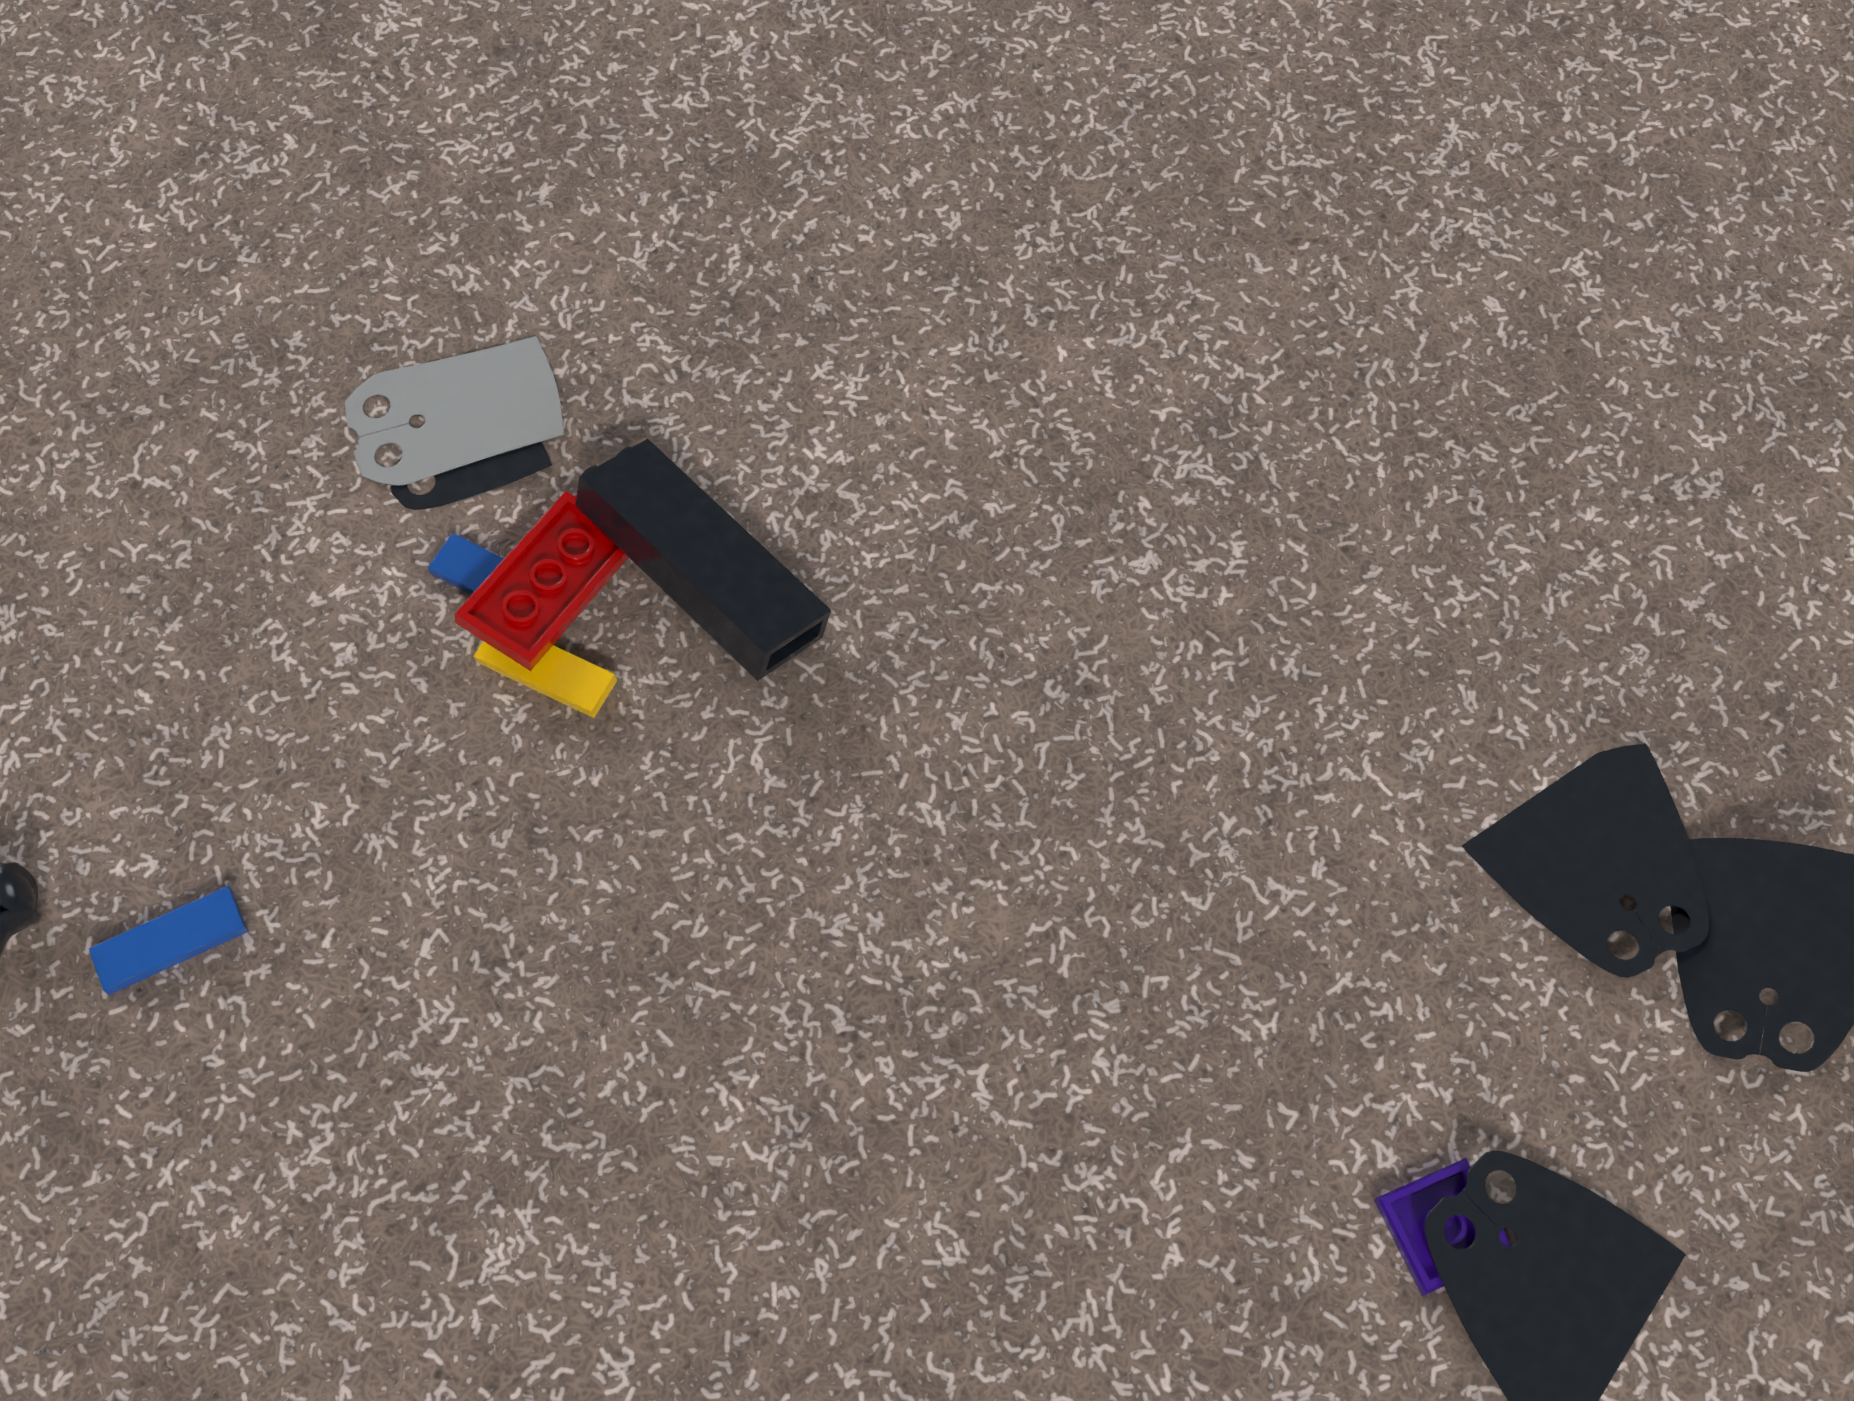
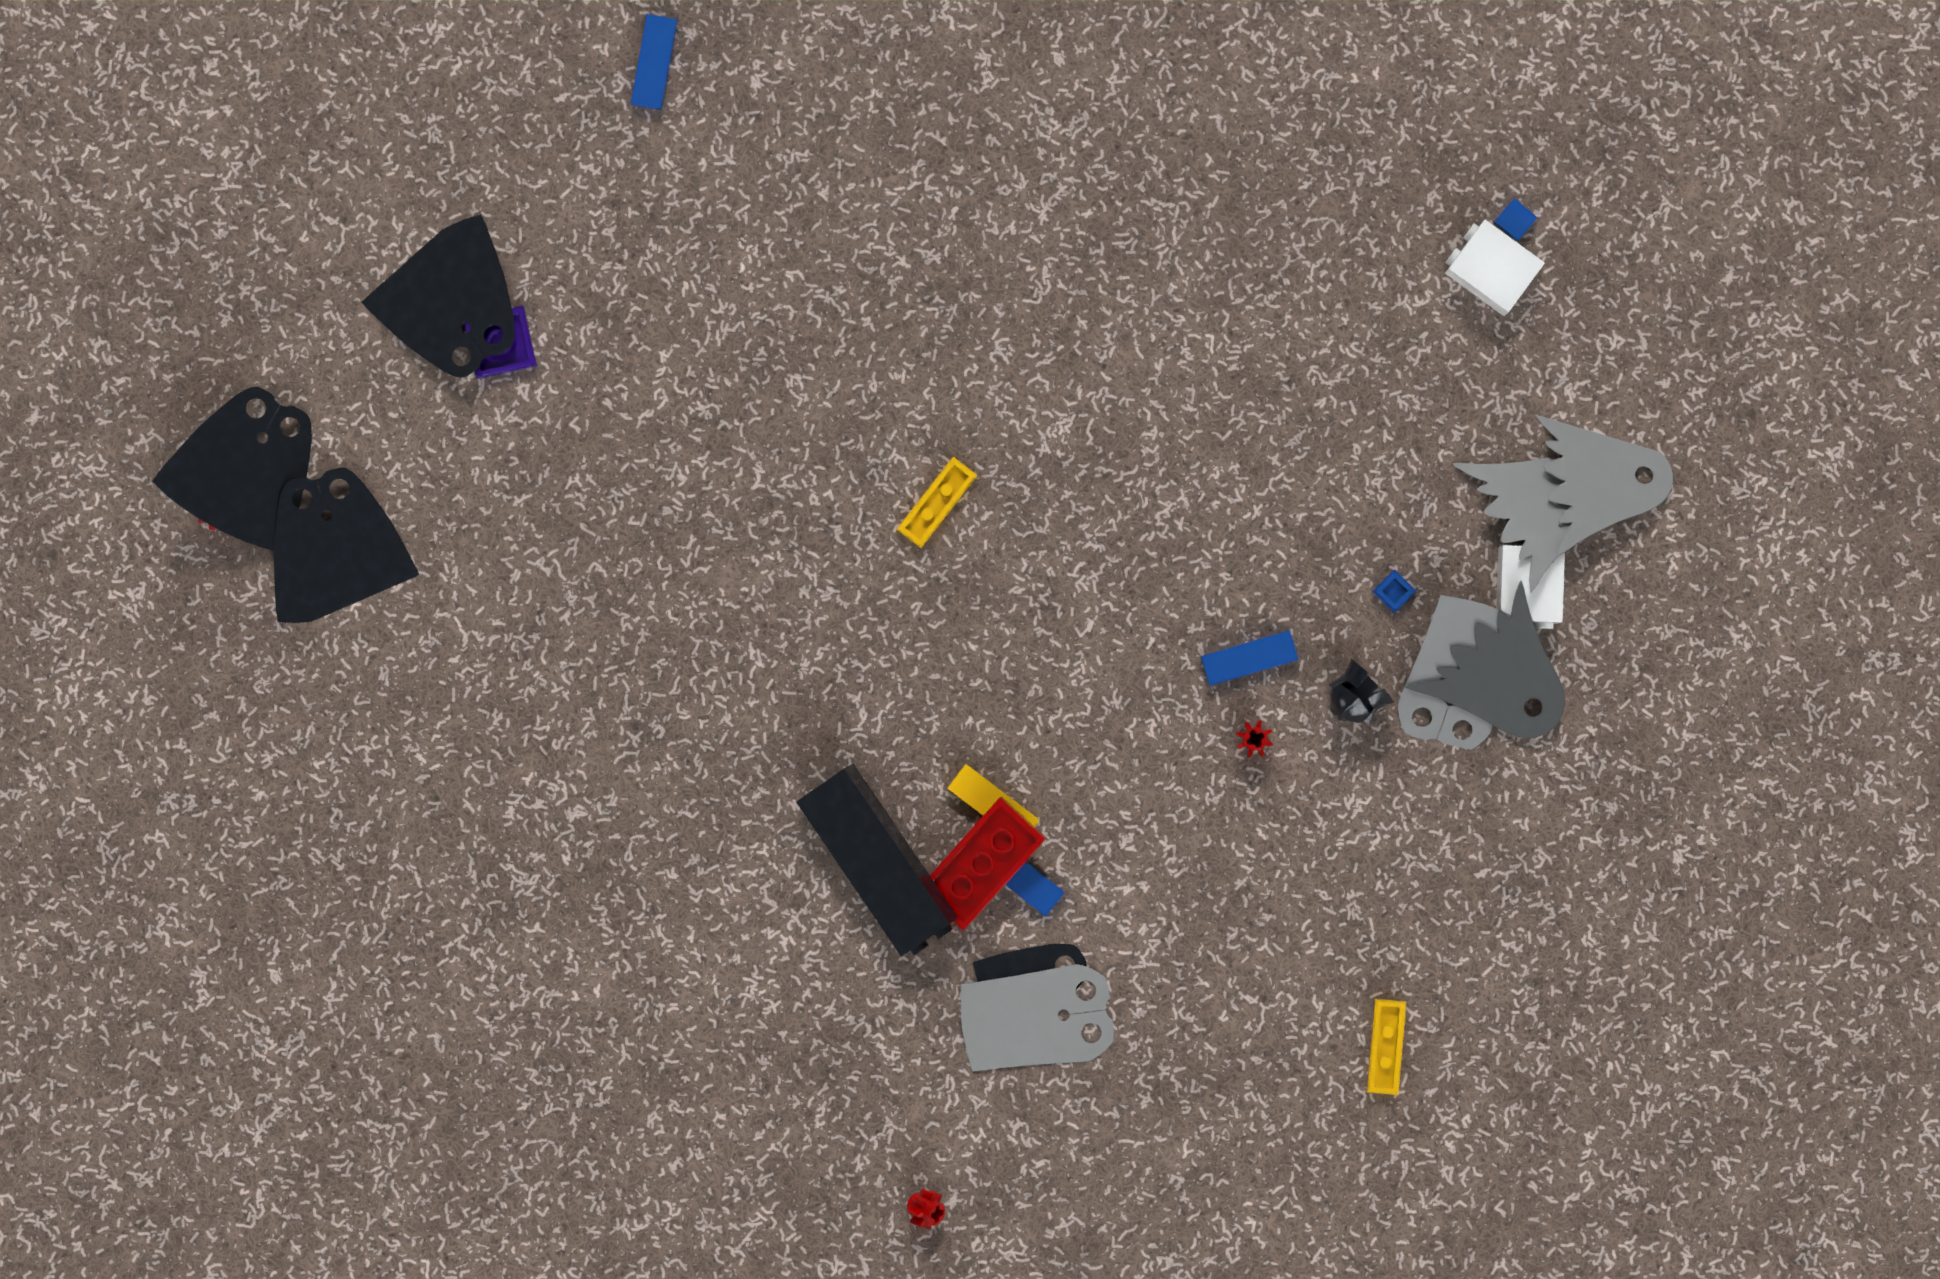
camera: 170 degrees left, 20 degrees up
(160, 829) = (1262, 742): none -> red gear
(575, 166) = (926, 1208): none -> red gear
(688, 1094) = (937, 502): none -> yellow tile

